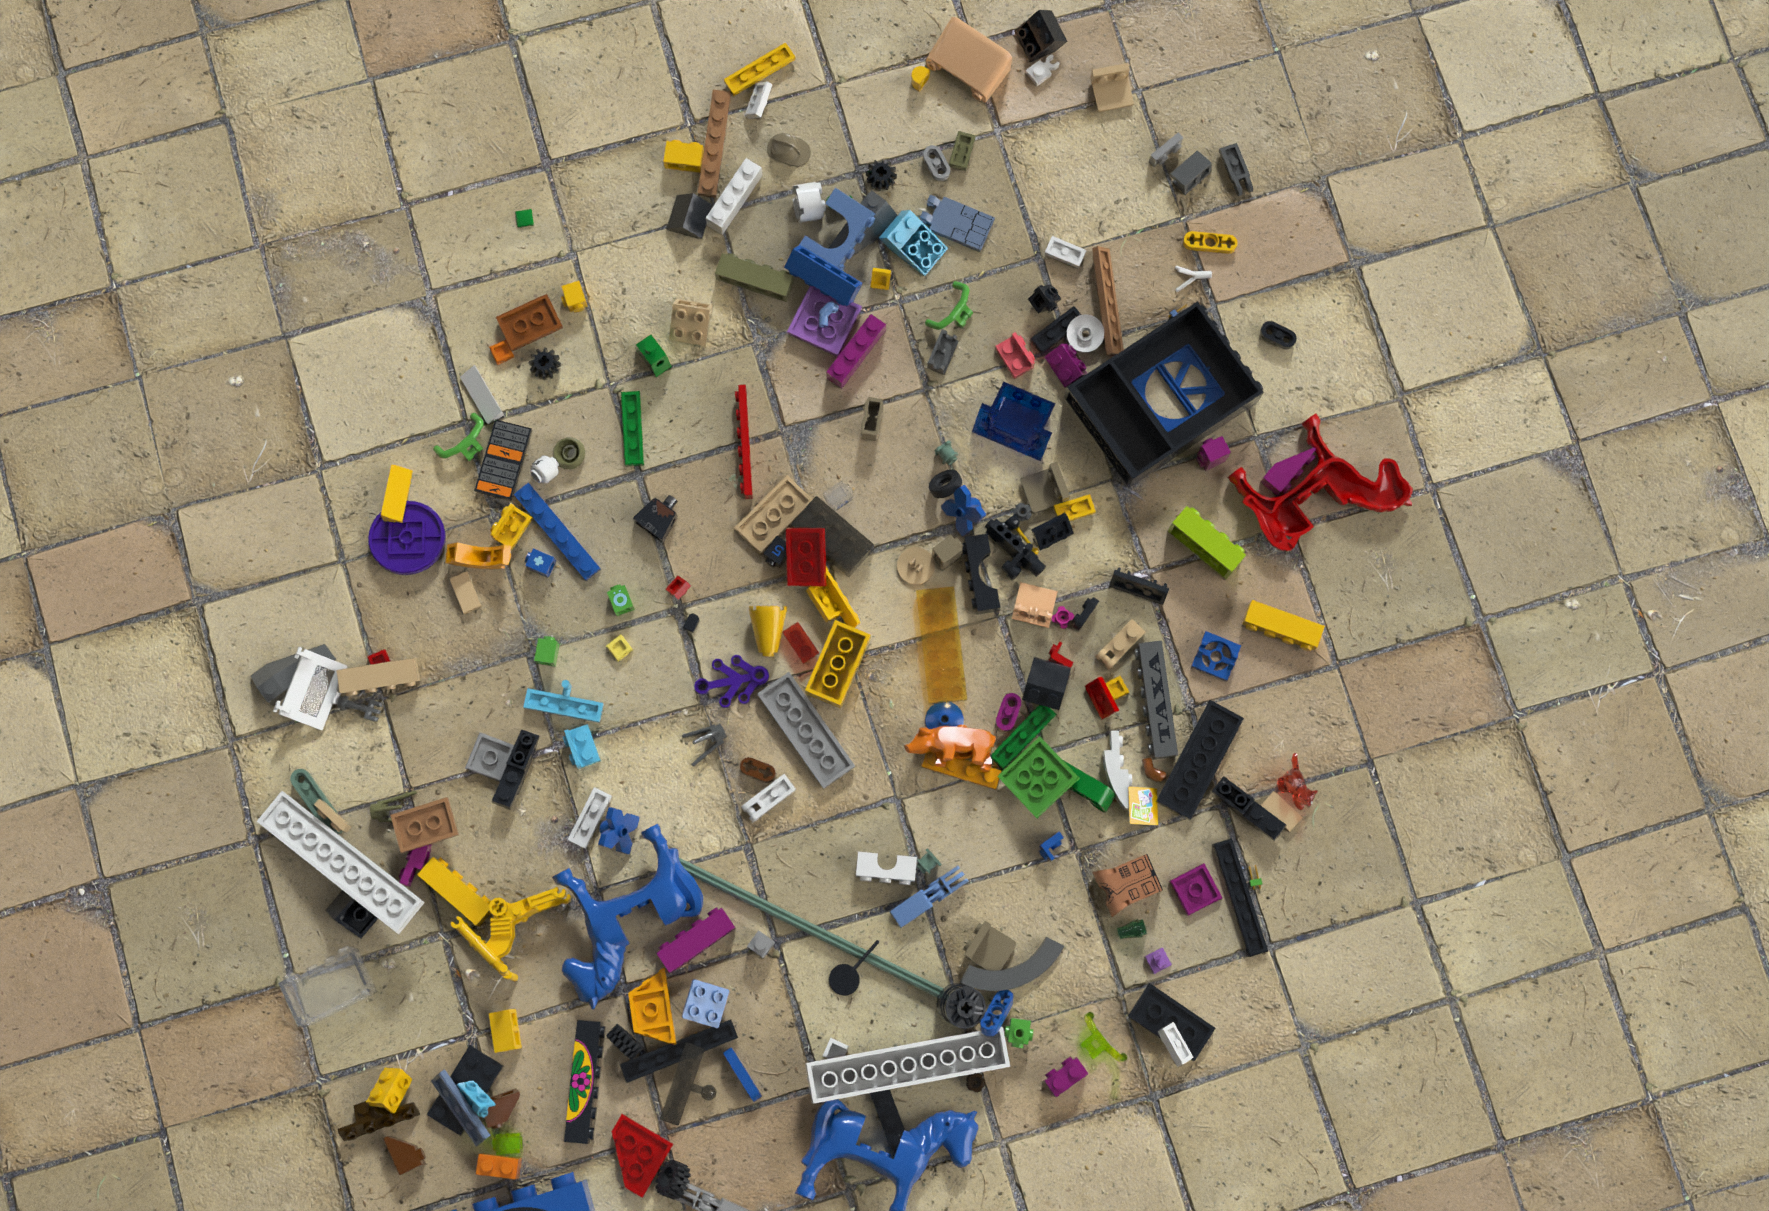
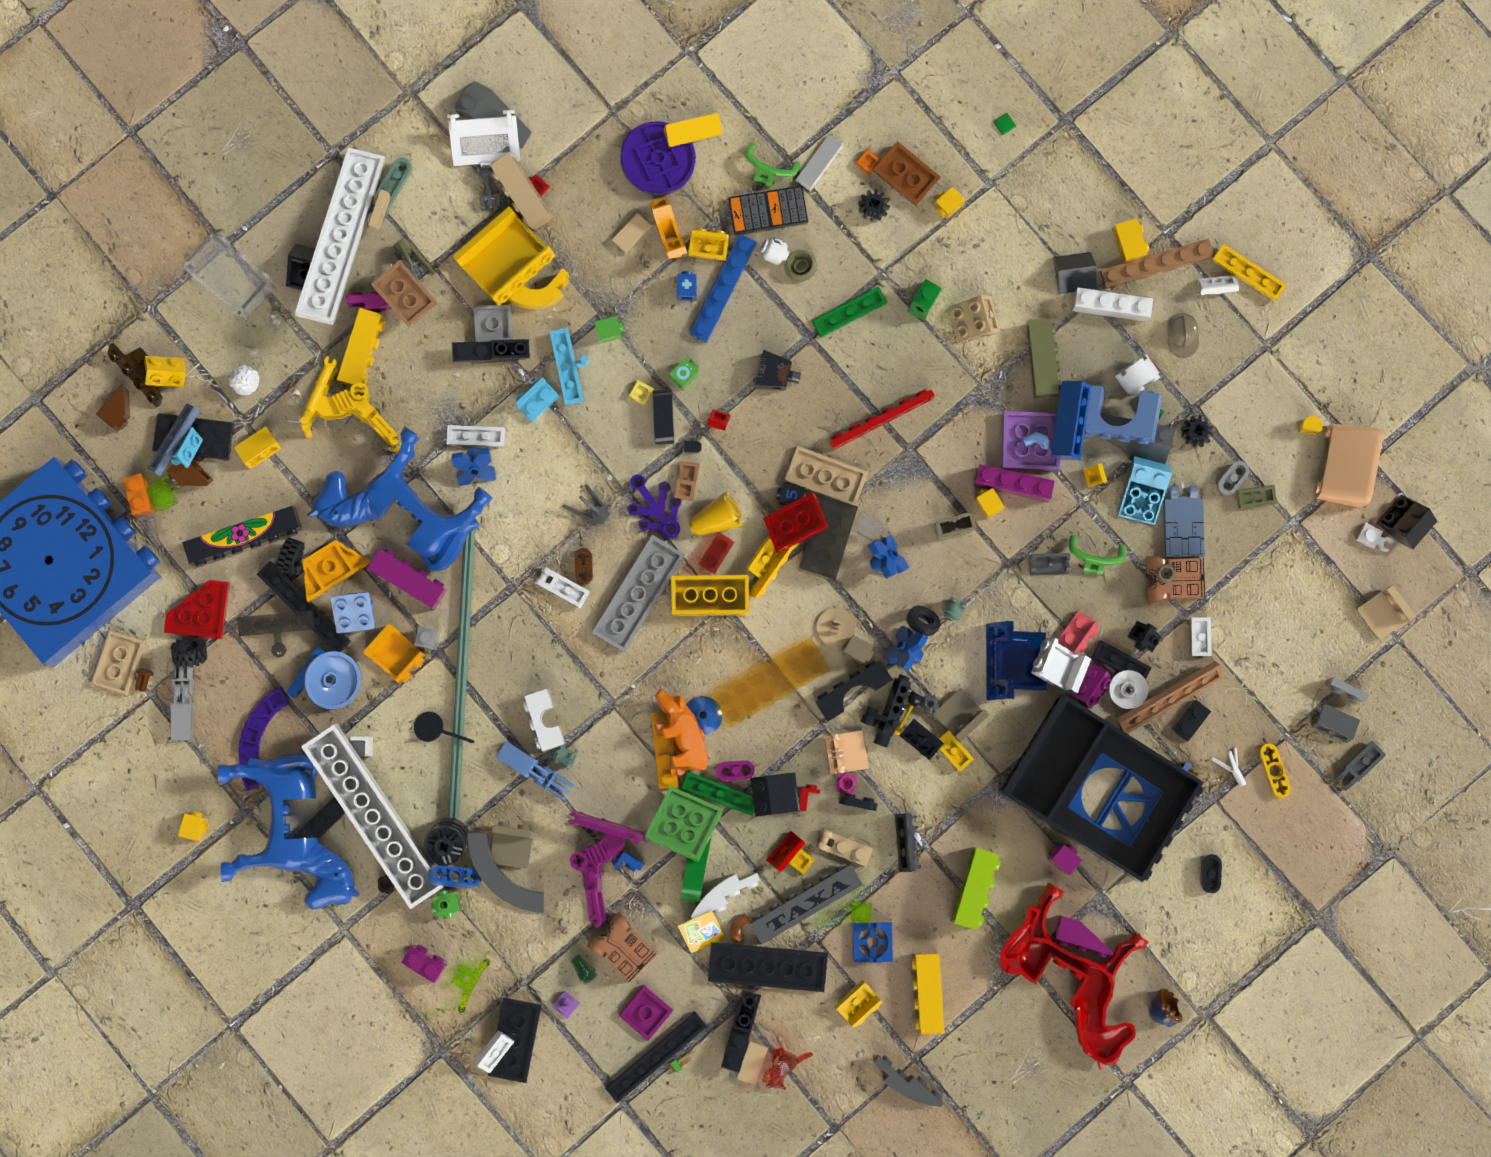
camera: 70 degrees right, 5 degrees up
(433, 718) = (503, 256): none -> yellow panel
(434, 1015) = (244, 380): none -> white piece
(485, 709) = (541, 298): none -> yellow arch
(652, 636) = (663, 417): none -> black beam
(721, 641) = (686, 480): none -> medium nougat slope
(762, 982) = (395, 653): none -> light orange panel
(765, 1042) = (343, 684): none -> medium blue dish
(773, 1148) = (255, 727): none -> dark purple tile
(864, 380) = (989, 502): none -> yellow brick
(874, 491) = (886, 557): none -> blue plant
(997, 249) = (1171, 573): none -> dark tan plate
(1005, 250) = (1187, 584): none -> nougat piece
(1033, 867) = (597, 855): none -> magenta piece
(1040, 381) = (1060, 666): none -> white panel
(1135, 293) = (1191, 720): none -> black plate
(1185, 653) = (861, 911): none -> clear neon green brick
(1267, 692) = (858, 1004): none -> yellow bracket
(1361, 677) = (913, 1089): none -> dark grey slope
(1380, 426) = (1164, 1008): none -> hair

